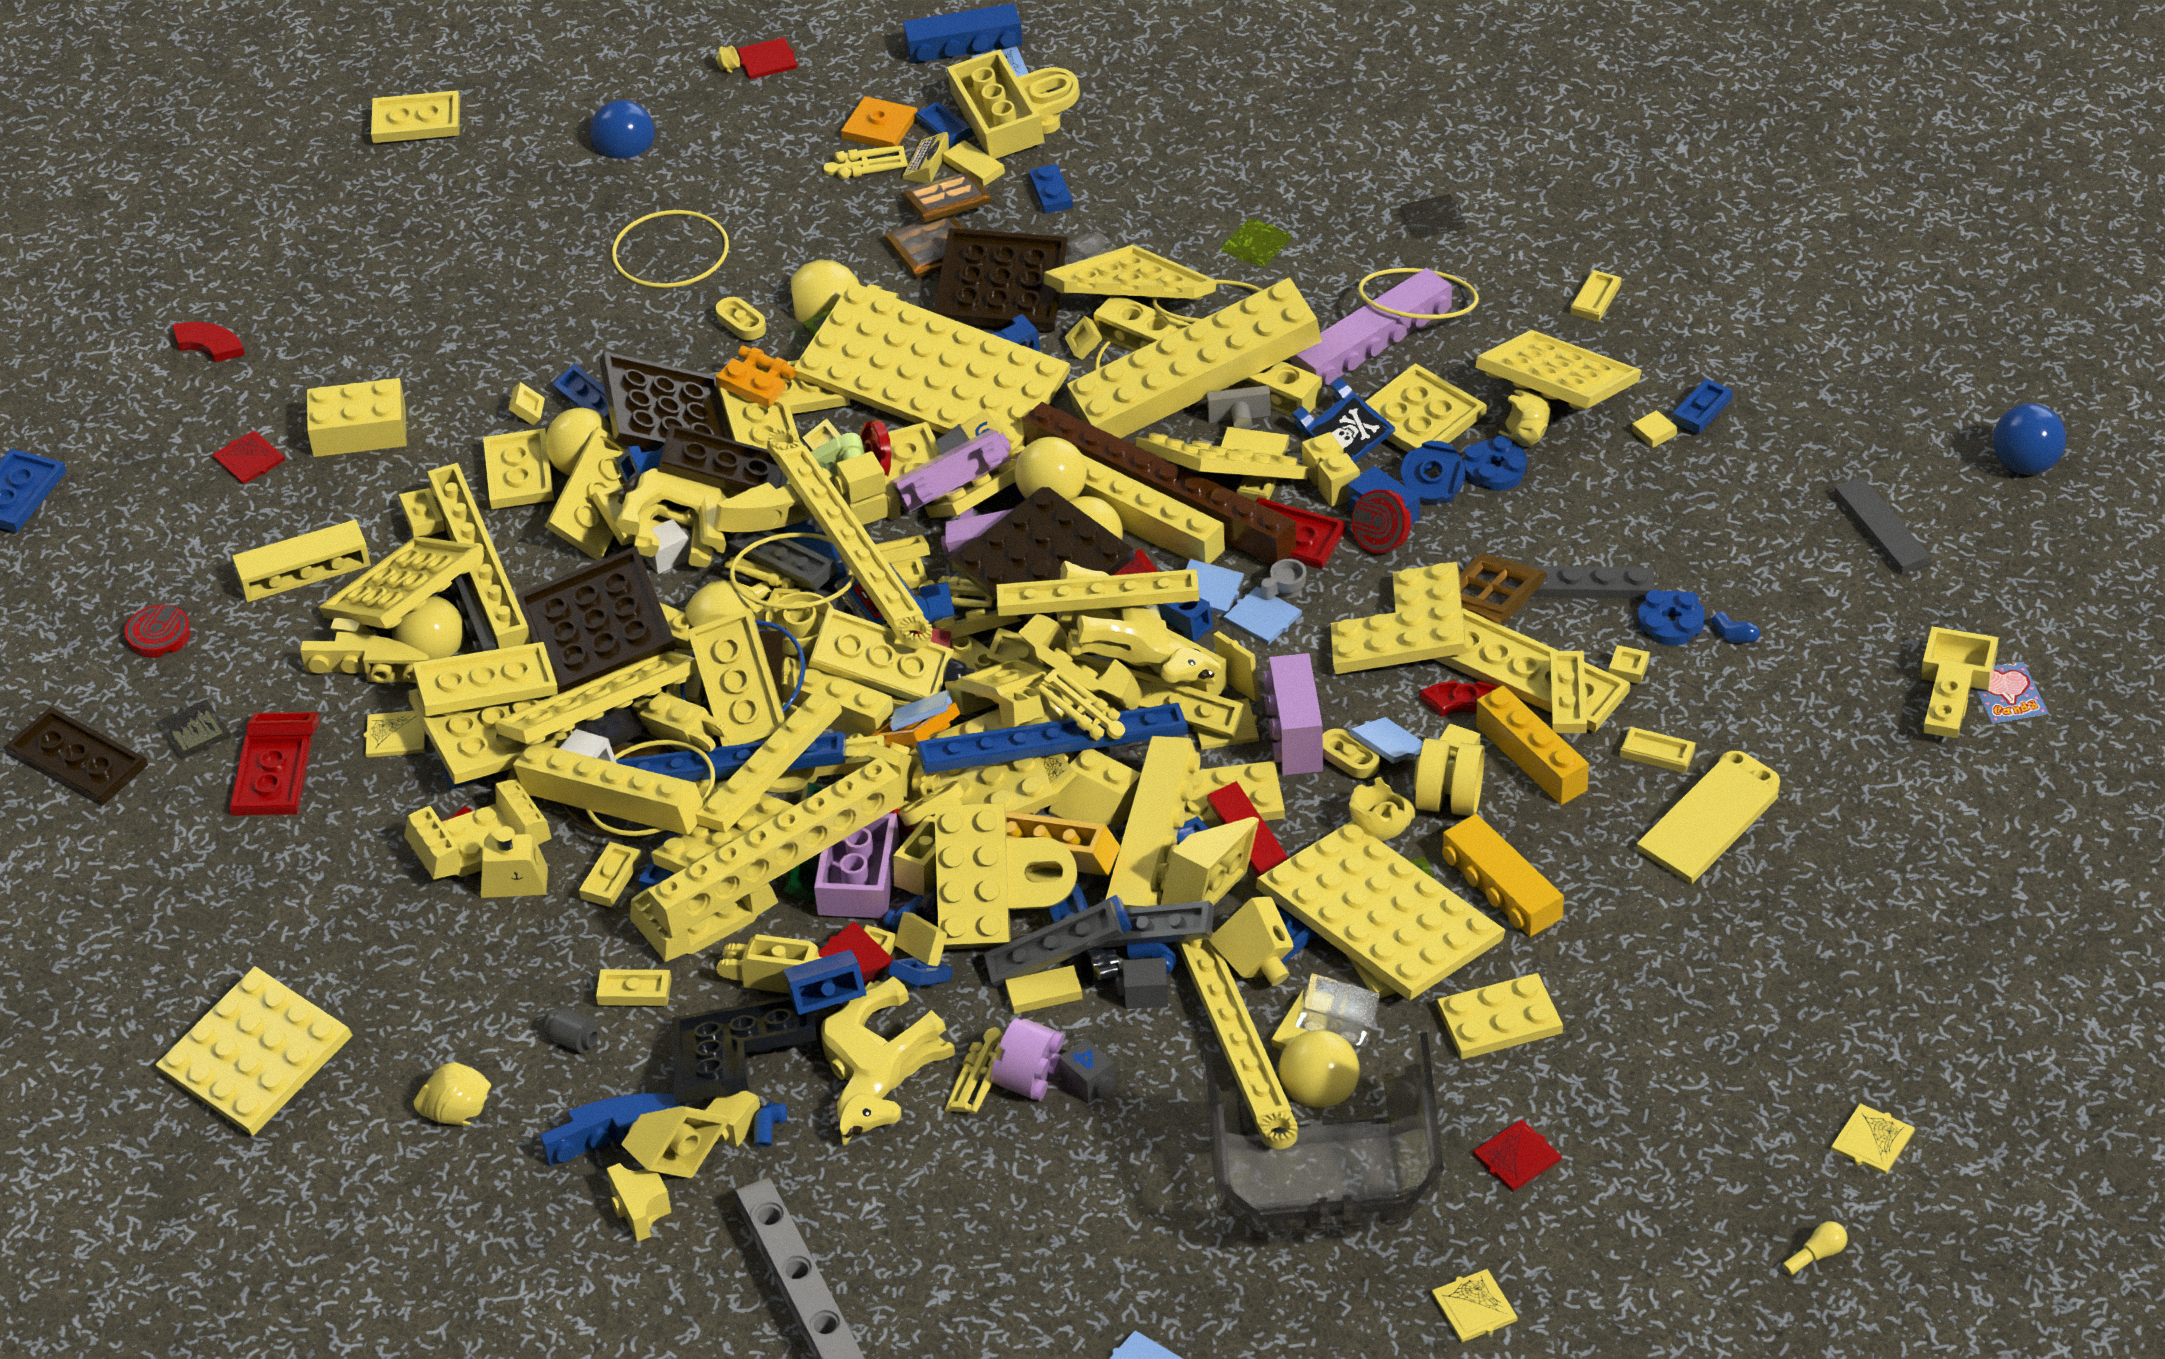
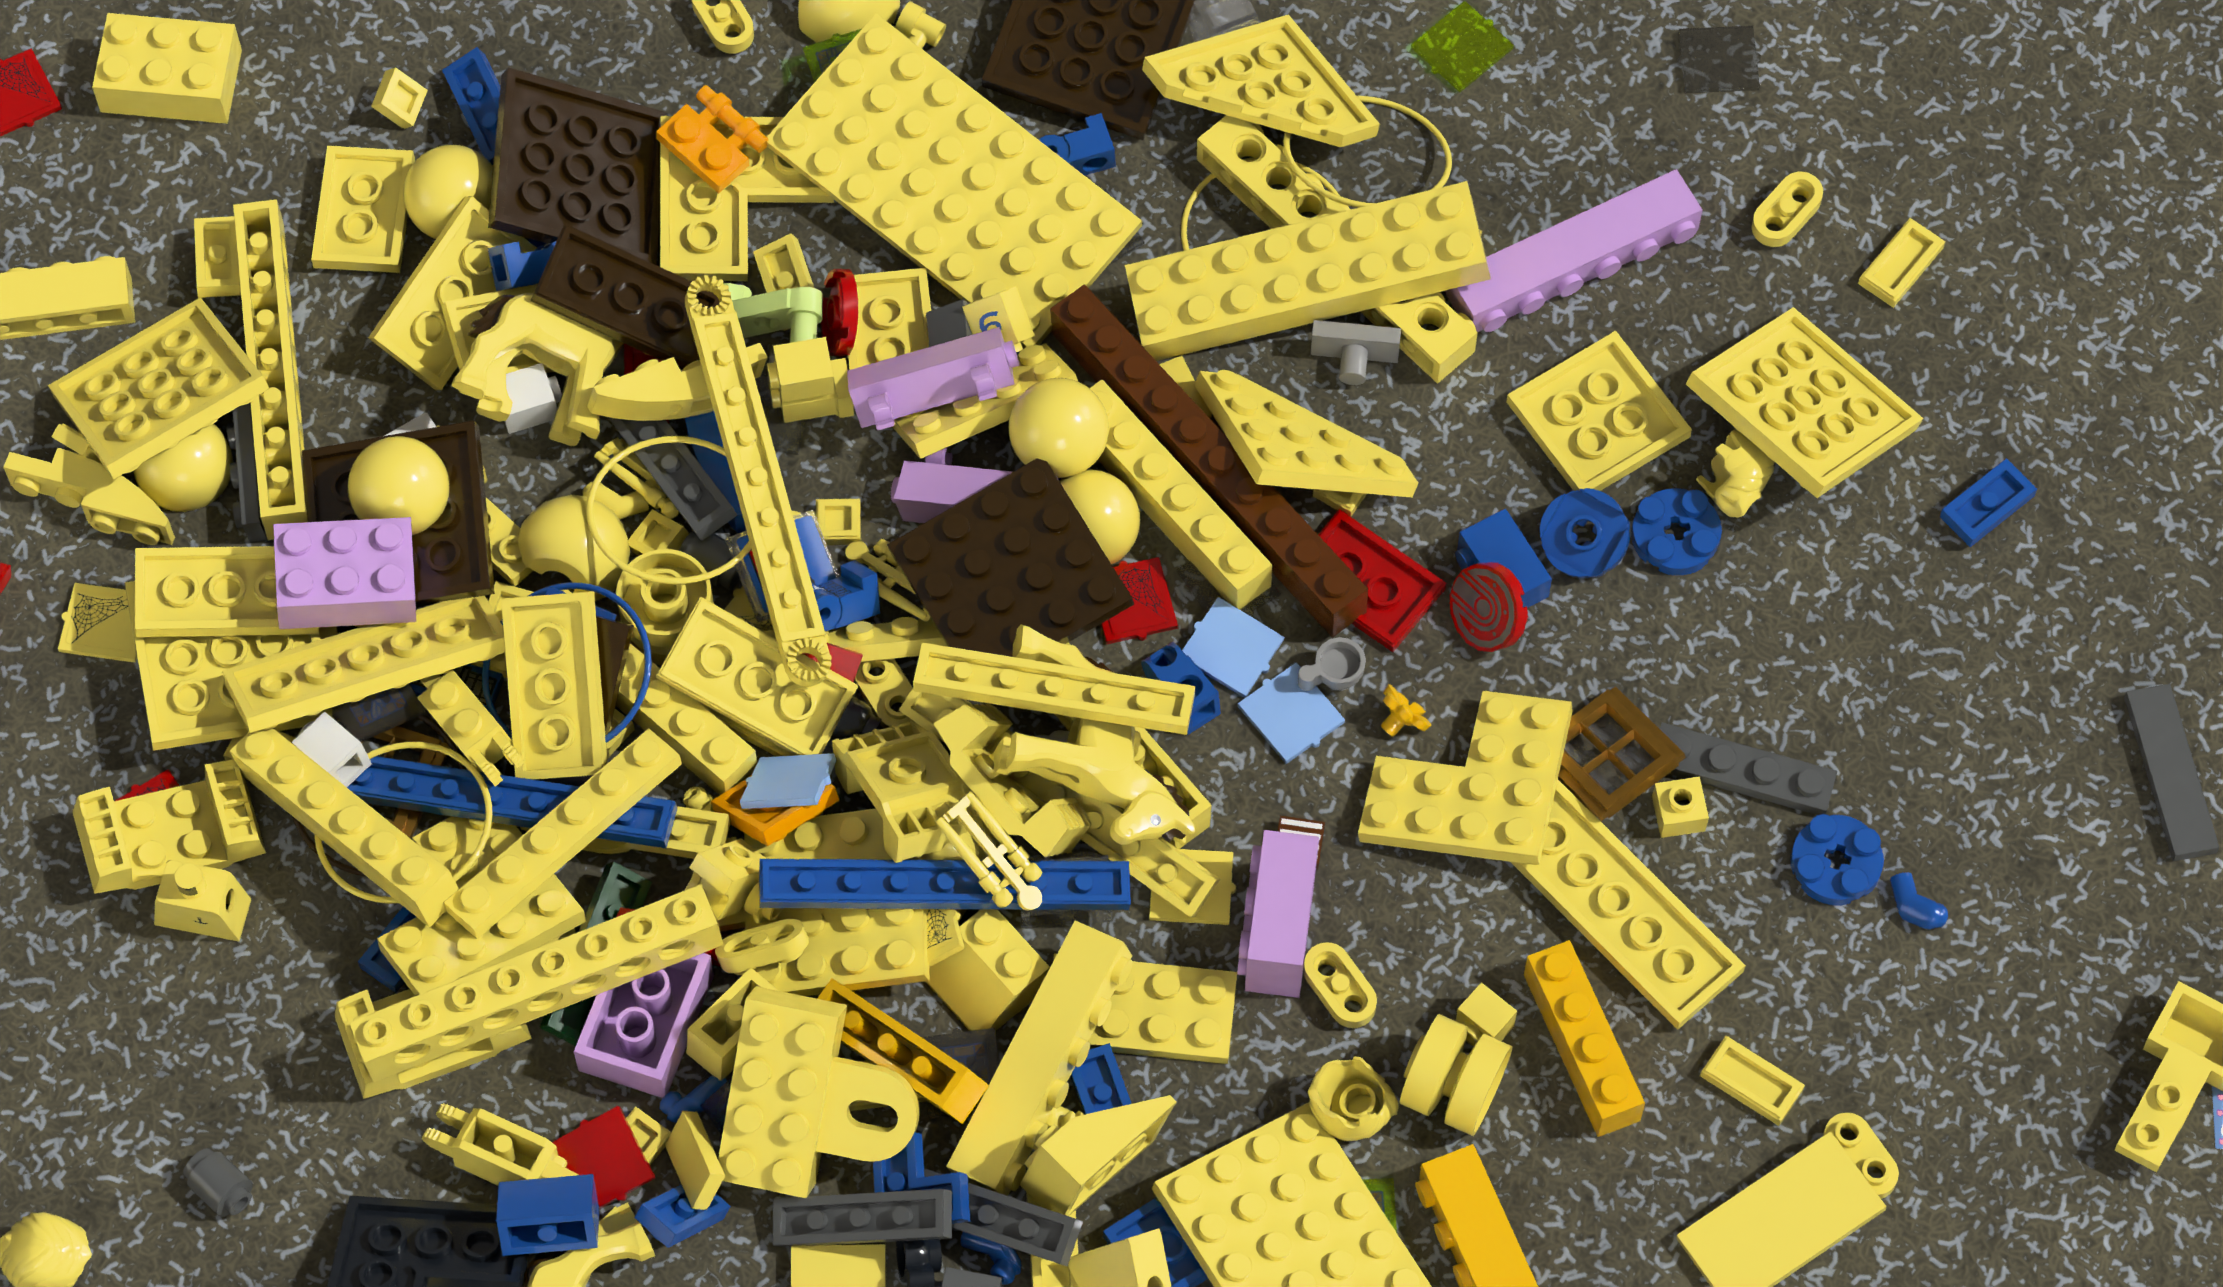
camera: 10 degrees right, 20 degrees up
(569, 644) = (344, 573): none -> lavender brick
(592, 593) = (399, 481): none -> light yellow piece
(610, 874) = (326, 937): light yellow plate -> none
(633, 987) = (313, 1132): light yellow plate -> none
(904, 548) = (829, 482): light yellow tile -> none
(1083, 337) = (1176, 168): light yellow plate -> none
(1232, 805) = (1168, 1073): red tile -> none
(1240, 666) = (1226, 811): light yellow piece -> none
(1258, 441) = (1361, 413): light yellow tile -> none
(1329, 467) = (1453, 501): light yellow piece -> none
(1341, 596) = (1402, 712): none -> yellow plant
(1349, 420) = (1492, 420): flag -> none
(1388, 739) = (1398, 976): light blue piece -> none
(1411, 315) = (1658, 266): light yellow piece -> none
(1454, 697) = (1519, 923): red tile -> none
(1508, 280) = (1784, 211): none -> light yellow plate
(1552, 608) = (1675, 818): none -> light yellow plate
(1568, 692) = (1654, 969): light yellow plate -> none
(1629, 664) = (1754, 930): light yellow plate -> none
(1654, 429) = (1911, 523): light yellow tile -> none

